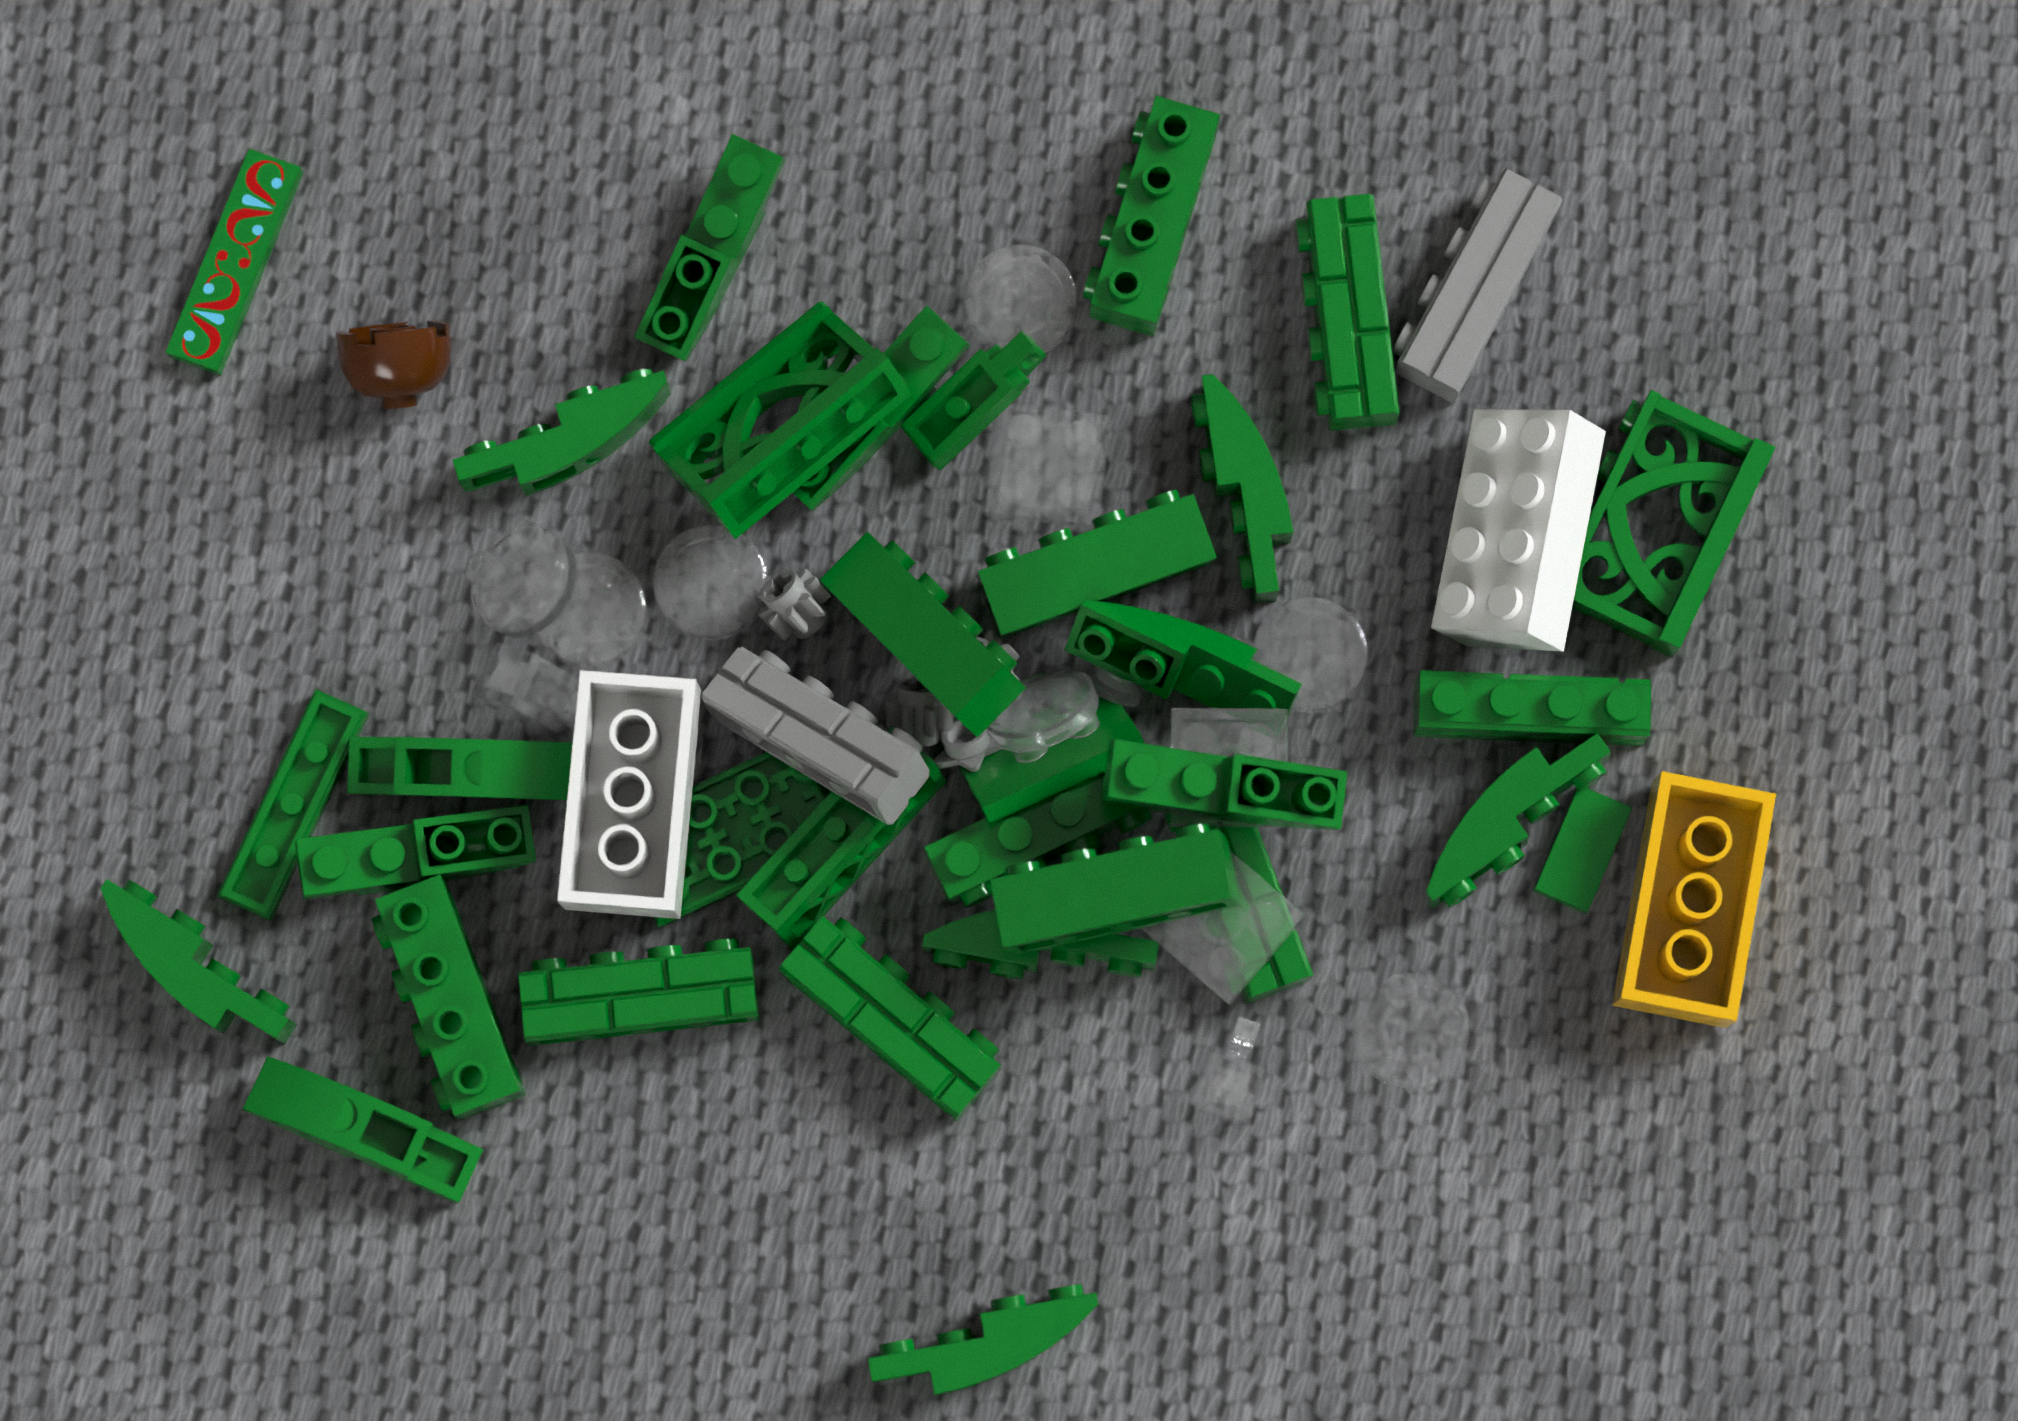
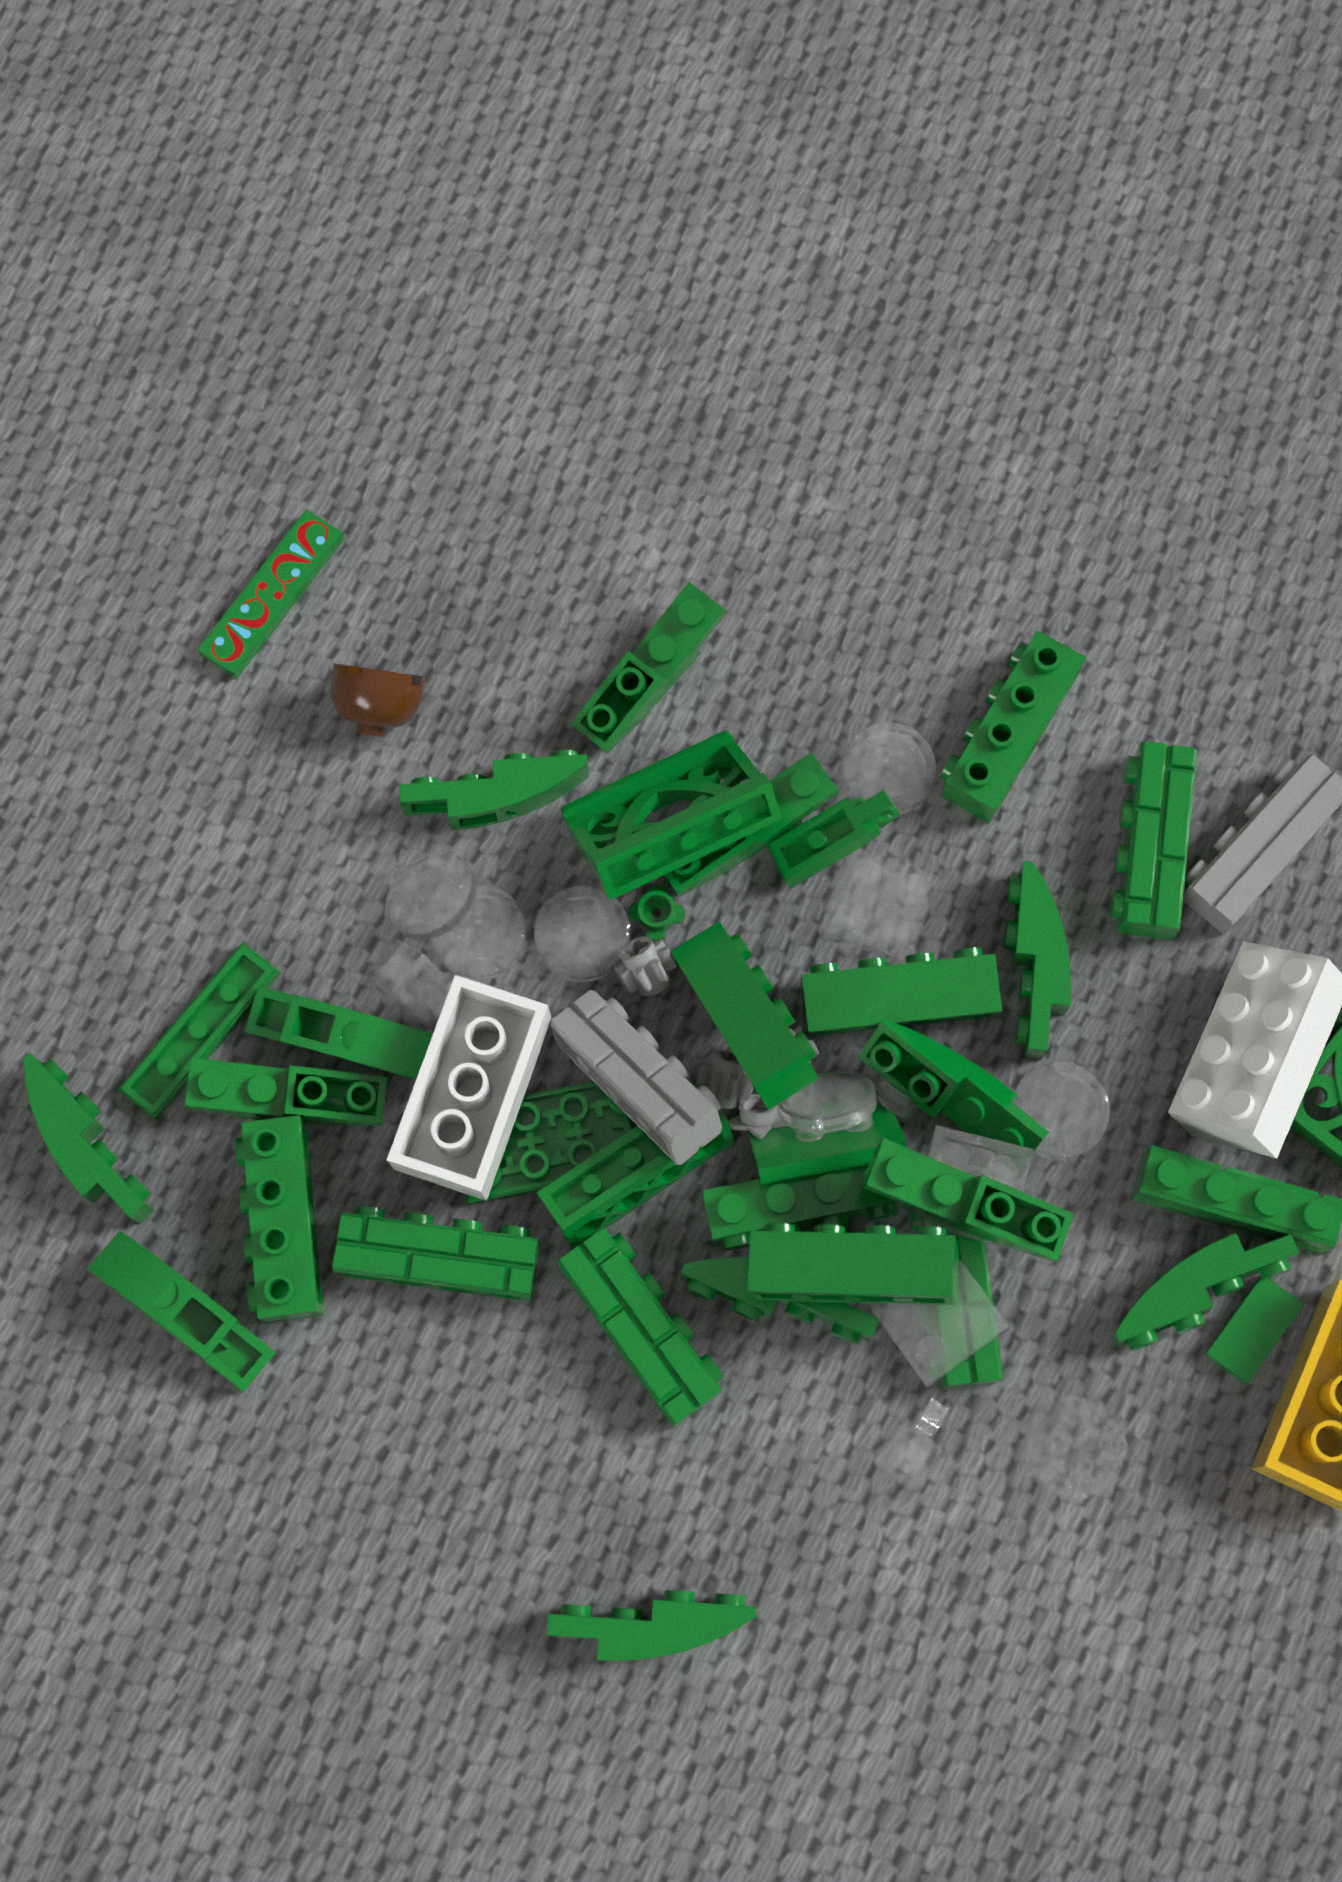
camera: 15 degrees right, 5 degrees down
(785, 522) = (656, 899): none -> green plate

